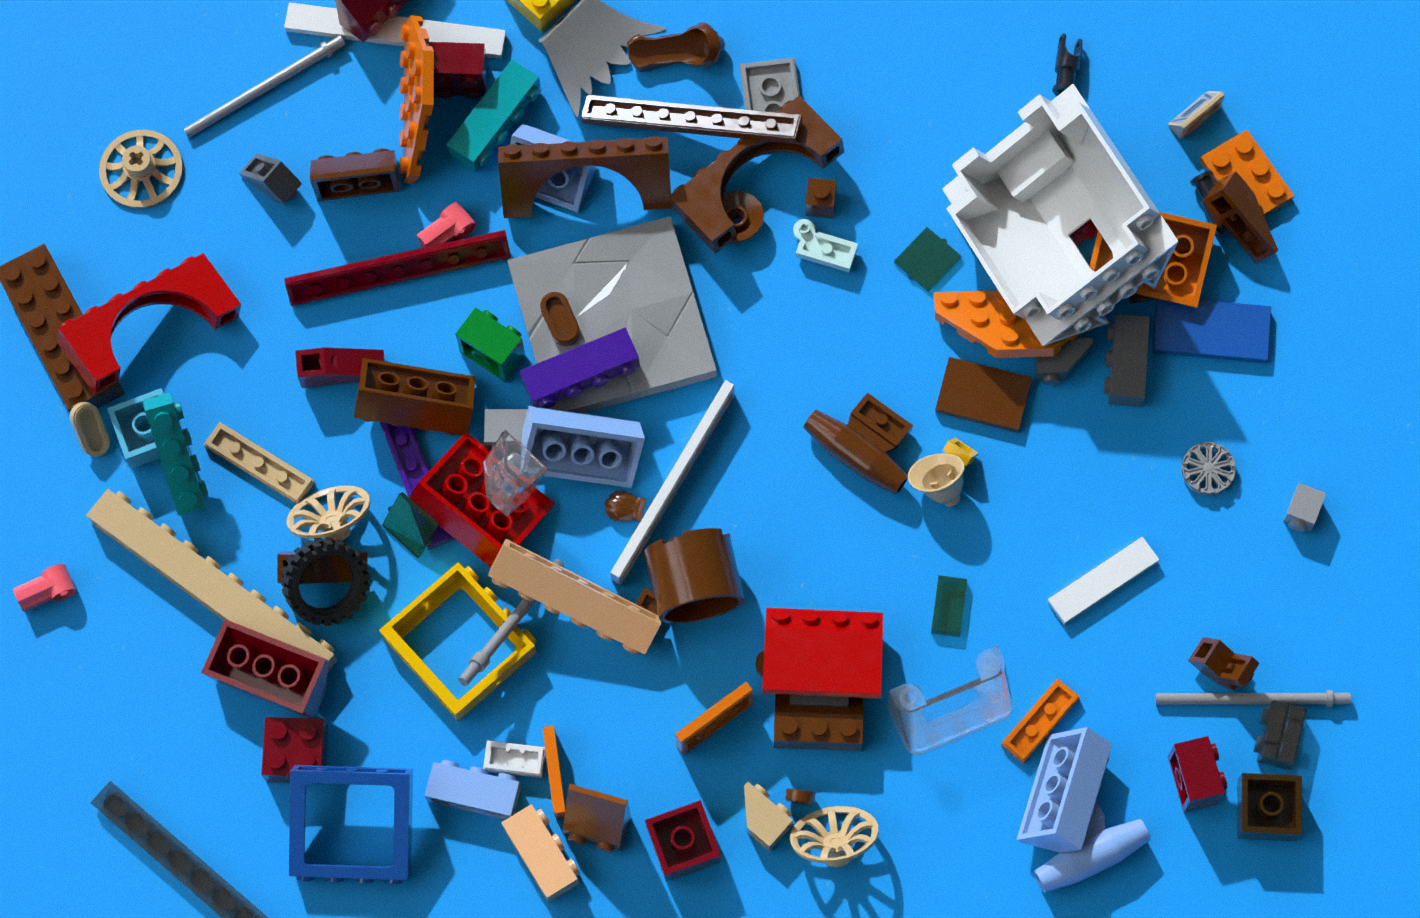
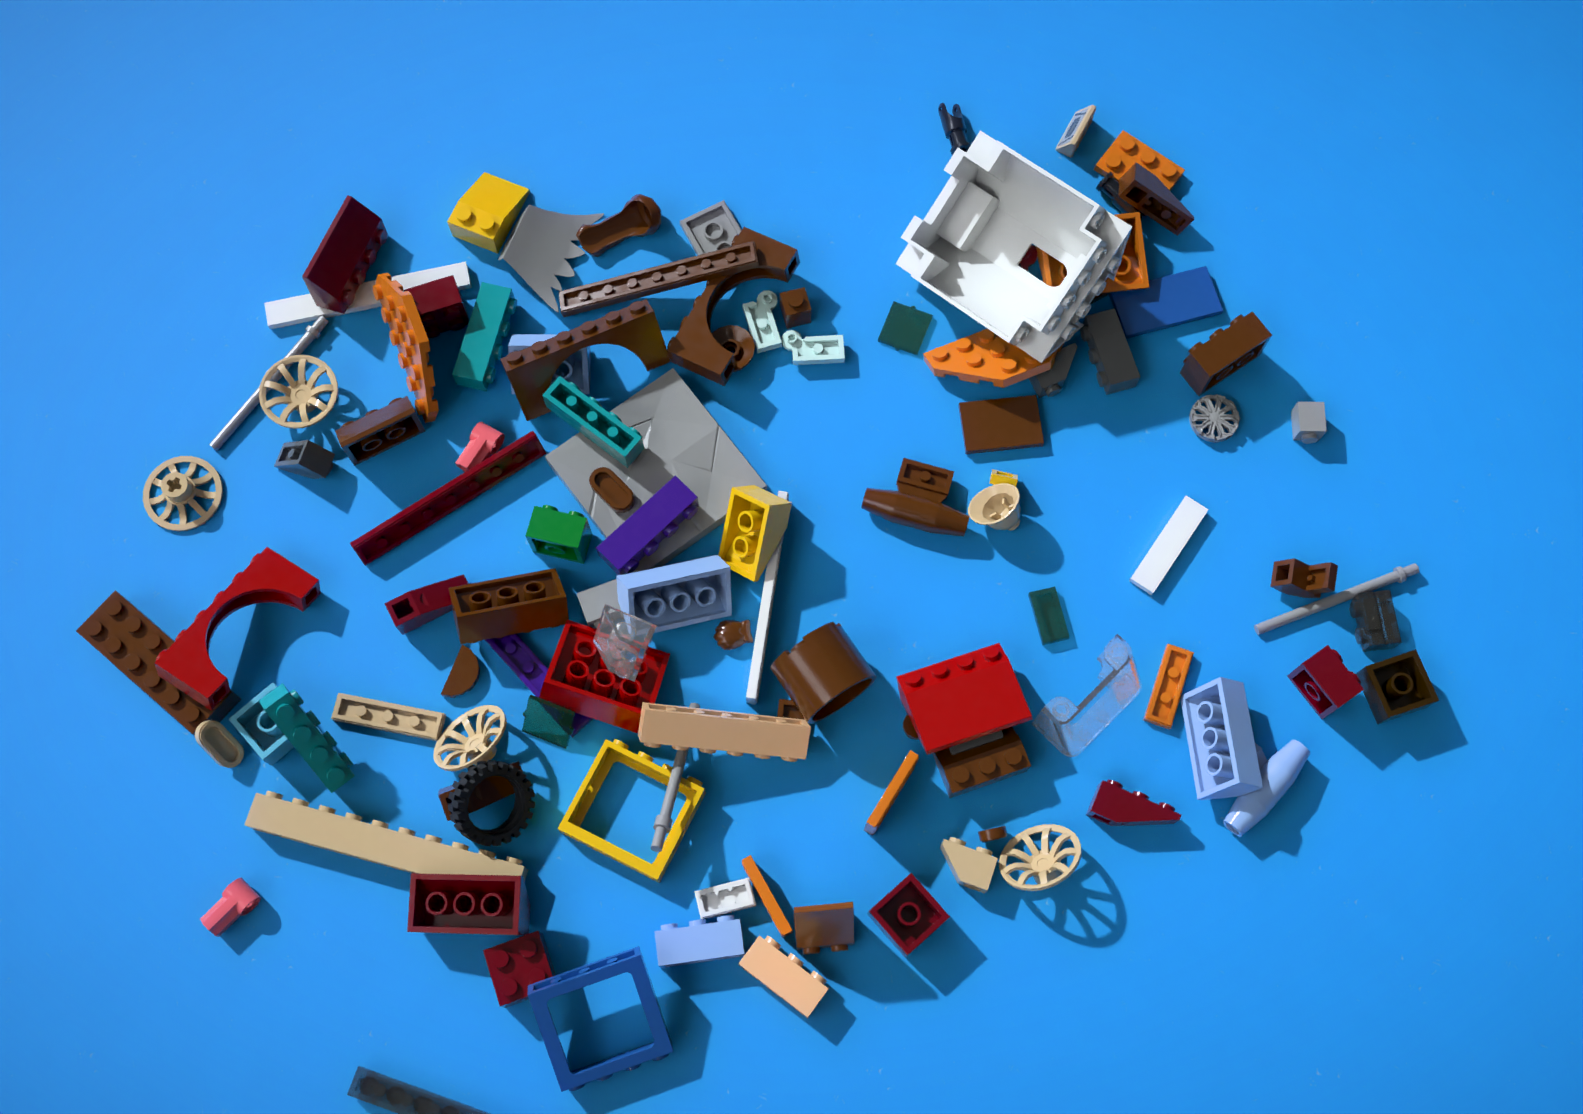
camera: 25 degrees left, 0 degrees up
(291, 109) = (300, 394): none -> tan wheel
(346, 448) = (463, 674): none -> reddish brown tile
(567, 243) = (593, 421): none -> teal brick
(683, 409) = (752, 529): none -> yellow slope
(781, 200) = (762, 323): none -> light aqua hinge
(940, 822) = (1122, 808): none -> dark red slope
(1244, 405) = (1225, 352): none -> reddish brown brick

